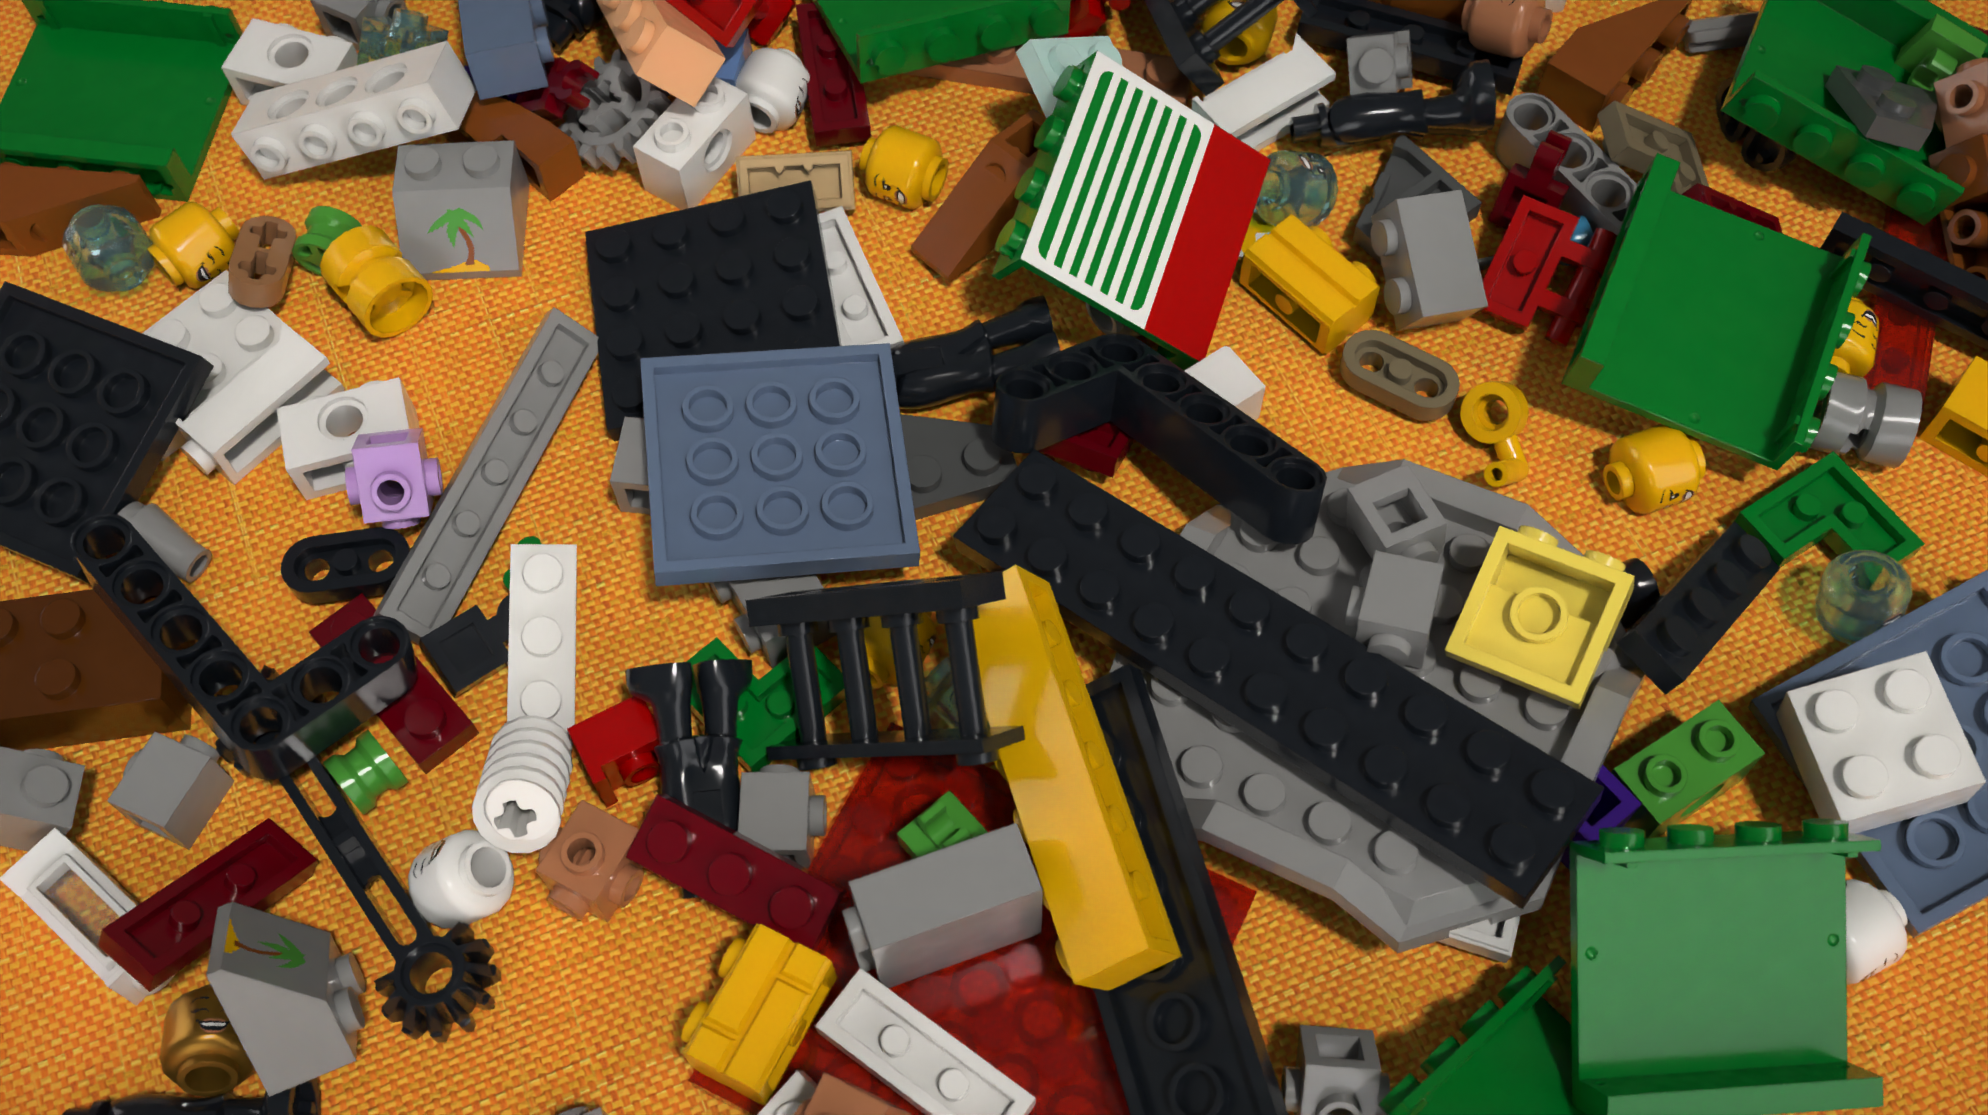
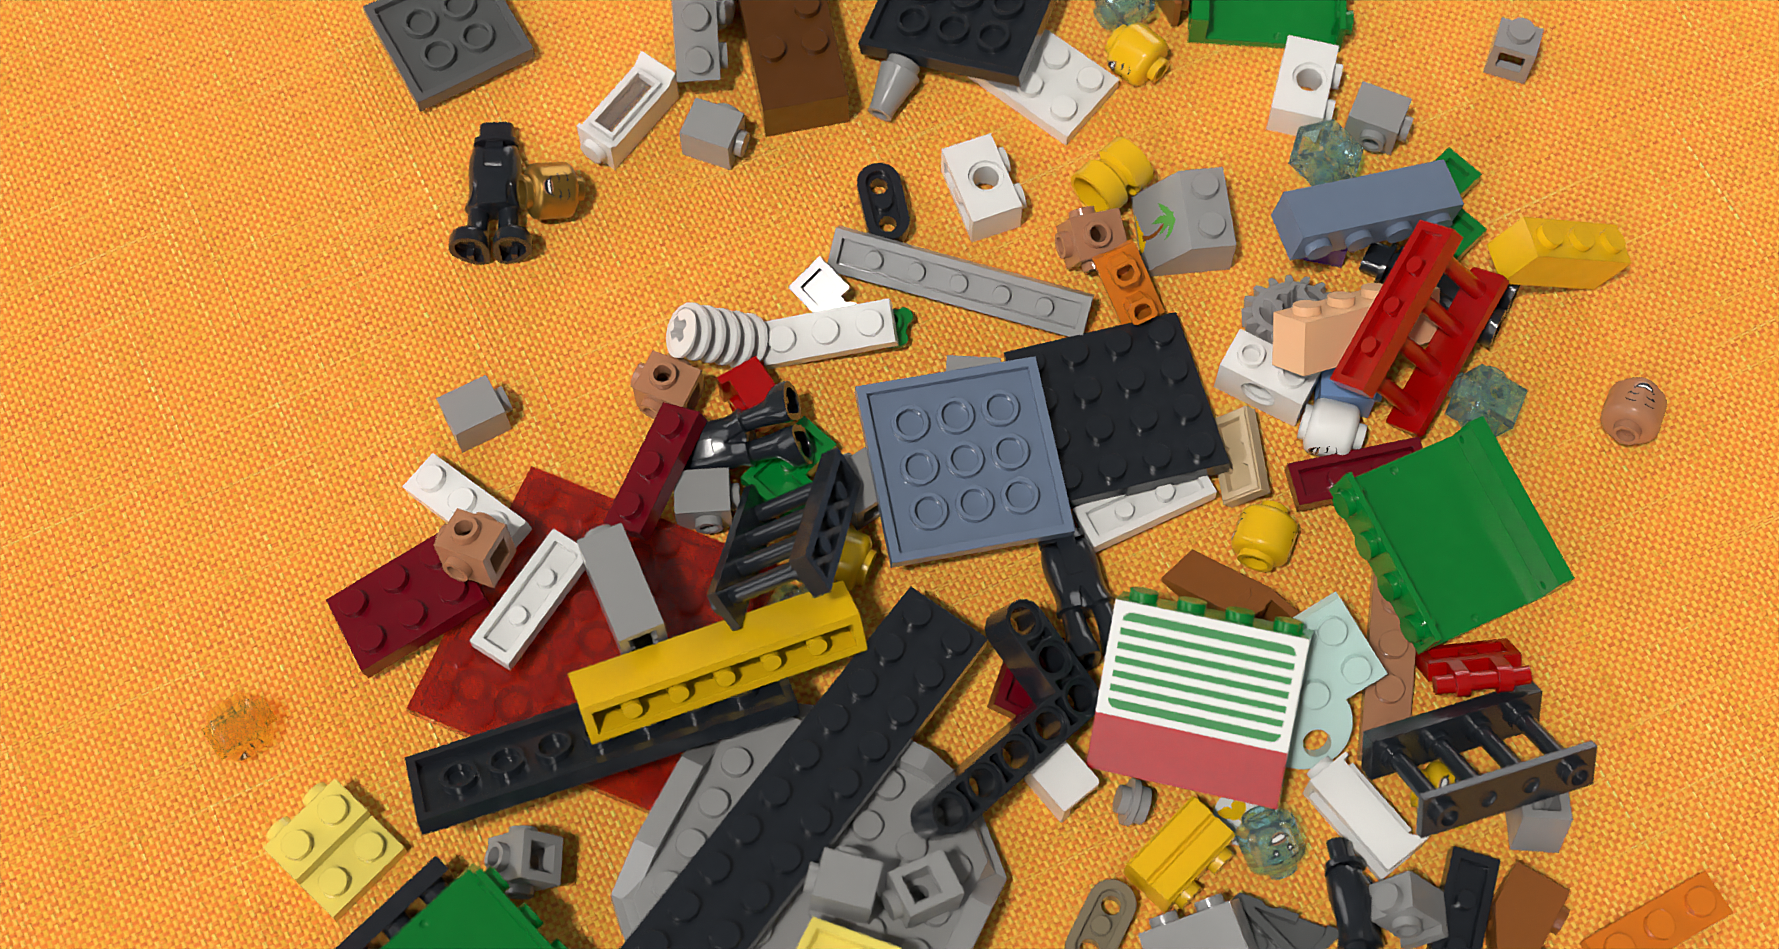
camera: 85 degrees right, 5 degrees up
(180, 919) = (630, 169): dark red plate -> none
(217, 661) = (784, 137): black beam -> none
(240, 419) = (1024, 135): white window -> none
(251, 258) = (1125, 91): medium nougat beam -> none
(285, 994) = (569, 220): light grey slope -> none
(322, 227) = (1149, 138): bright green wheel -> none
(355, 110) = (1249, 131): white brick -> none
(361, 862) = (676, 246): black arm -> none
(365, 772) = (730, 243): bright green wheel -> none
(395, 457) = (940, 216): lavender brick -> none
(422, 719) = (797, 249): dark red plate -> none
(460, 879) = (651, 308): white head -> none
(463, 308) = (1088, 235): none -> nougat brick
(542, 272) = (1128, 284): none -> orange hips
(544, 149) = (1255, 244): dark orange slope -> none
(564, 89) = (1291, 271): dark red plate -> none
(758, 1012) = (560, 493): yellow brick -> none
(939, 827) = (685, 603): bright green tile -> none
(952, 463) = (993, 580): dark grey wing -> none
(1243, 328) = (1132, 802): none -> light grey plate

